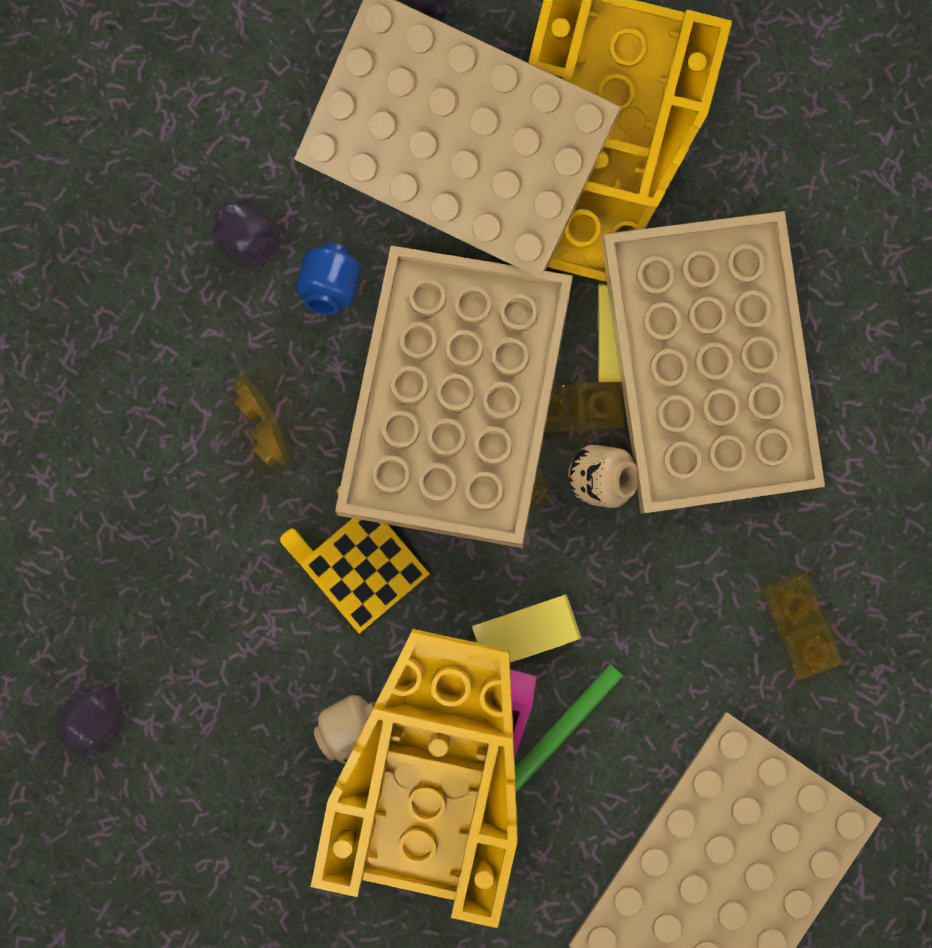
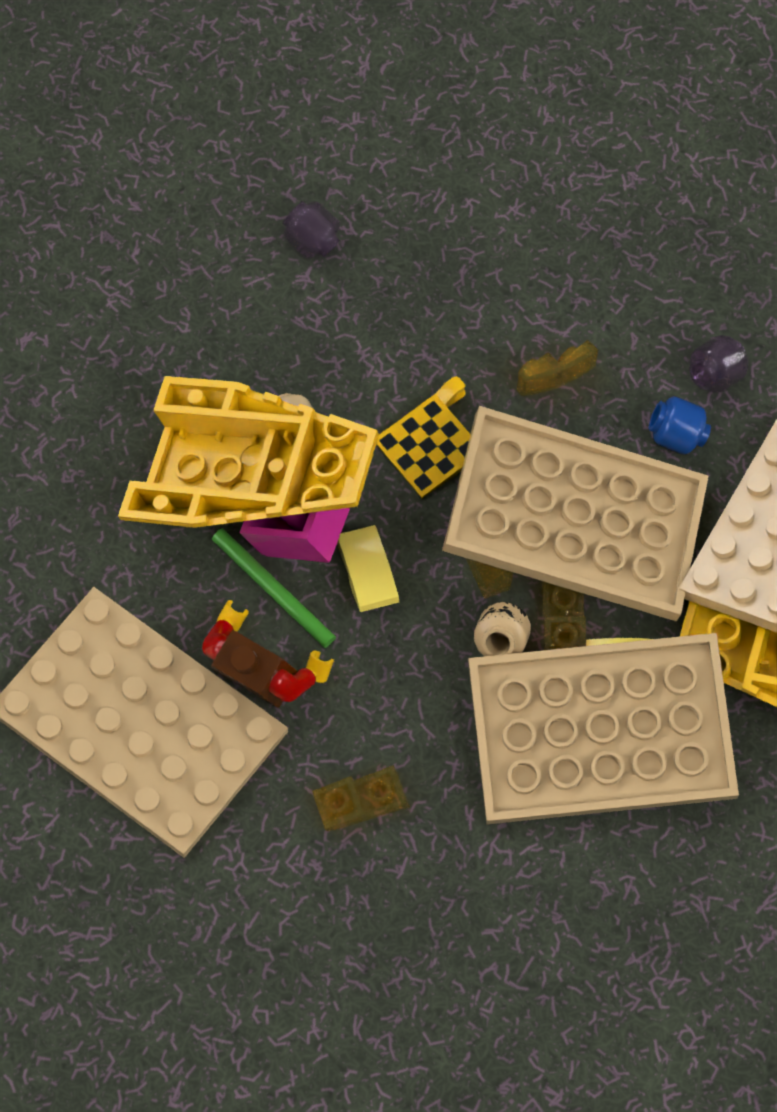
camera: 90 degrees right, 20 degrees down
(666, 756) = (257, 667): none -> torso

